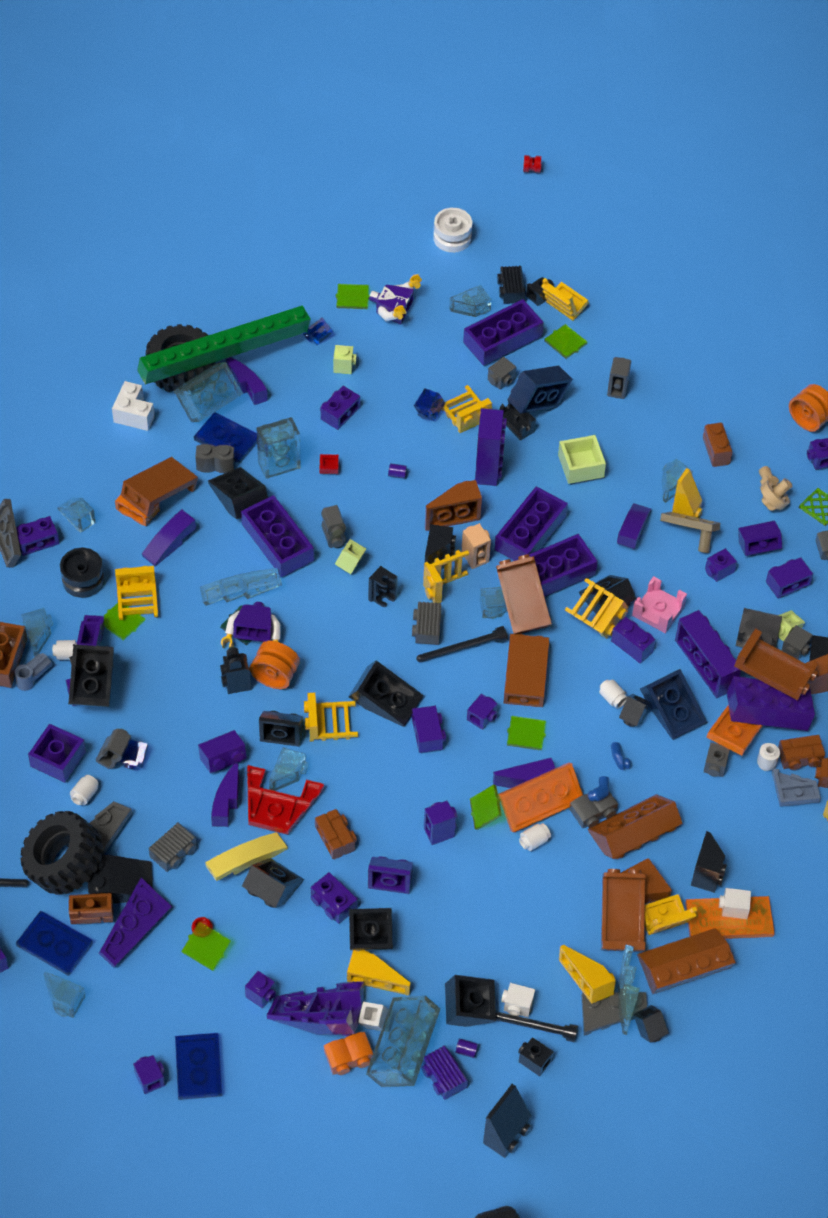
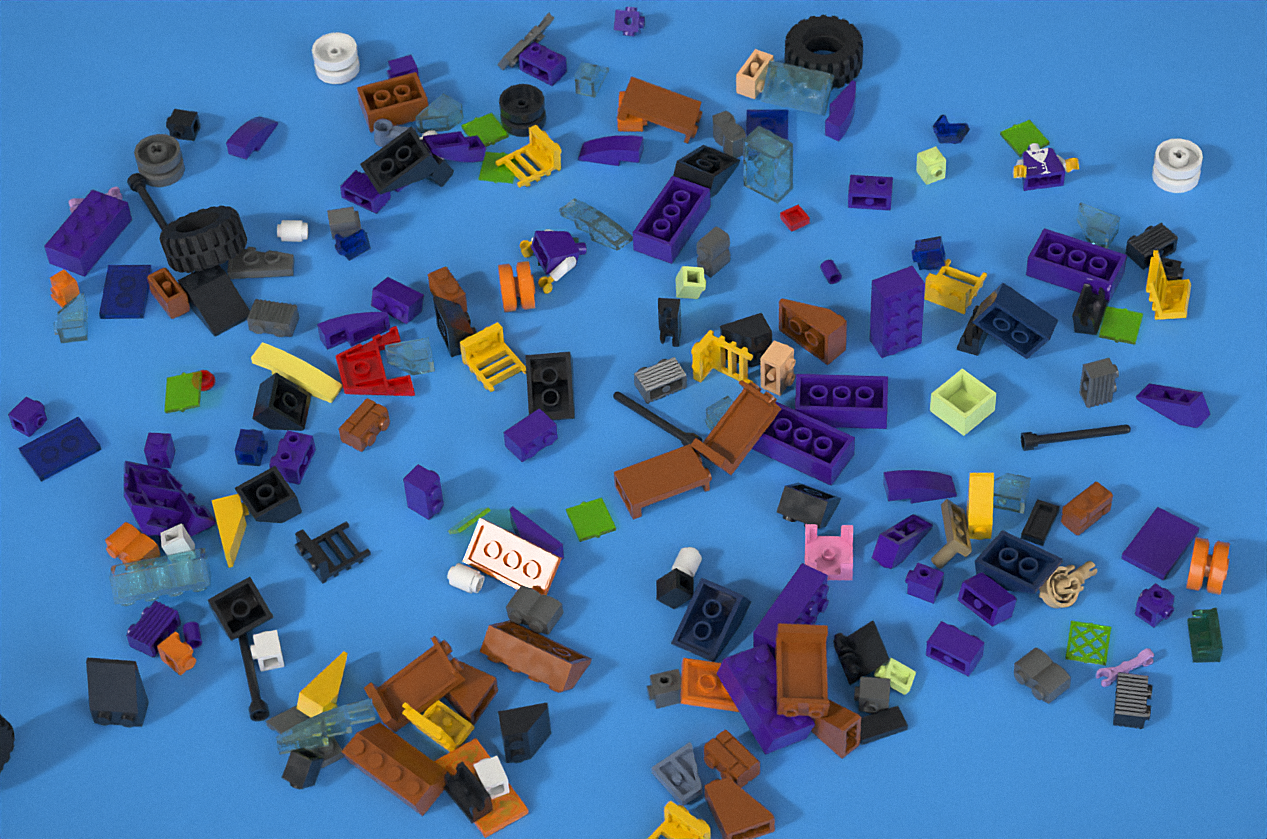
camera: 65 degrees right, 5 degrees down
(21, 986) = (63, 288): none -> orange brick
(40, 458) = (622, 18): none -> dark purple brick
(57, 753) = (314, 190): dark purple brick -> none
(72, 610) = (486, 128): none -> clear neon green piece
(81, 719) = (361, 191): none -> dark purple brick
(131, 409) = (738, 46): white brick -> none
(136, 919) = (182, 331): dark purple wing -> none
(167, 410) = (753, 73): none -> light nougat brick
(223, 344) = (851, 62): green brick -> none
(235, 672) = (485, 261): black hinge -> none
(238, 714) = (445, 286): none -> dark orange brick
(302, 923) = (250, 447): none -> clear blue brick
(390, 874) = (345, 483): dark purple slope -> none
(448, 926) = (317, 558): none -> black plate
(481, 1066) = (176, 654): none -> orange brick
(482, 711) = (585, 469): dark purple brick -> none
(502, 373) = (1026, 286): dark grey brick -> none
(535, 1056) = (212, 692): black brick -> none
(545, 349) = (1089, 311): none -> black hinge
(600, 792) = (546, 600): blue arm -> none
(607, 616) = (772, 510): yellow plate -> none
(618, 758) = (611, 603): blue arm -> none
(633, 640) = (765, 550): dark purple brick -> none
(635, 443) = (1031, 440): none -> black piece
(660, 350) = (1176, 404): none -> dark purple slope
(676, 559) = (899, 541): none -> dark purple slope
(707, 477) = (1040, 522): none -> black tile
(740, 924) = (468, 793): none -> black hinge
(748, 504) = (1016, 563): none -> dark blue slope
(767, 424) = (1160, 543): none -> dark purple tile
(768, 756) = (700, 729): white brick -> none

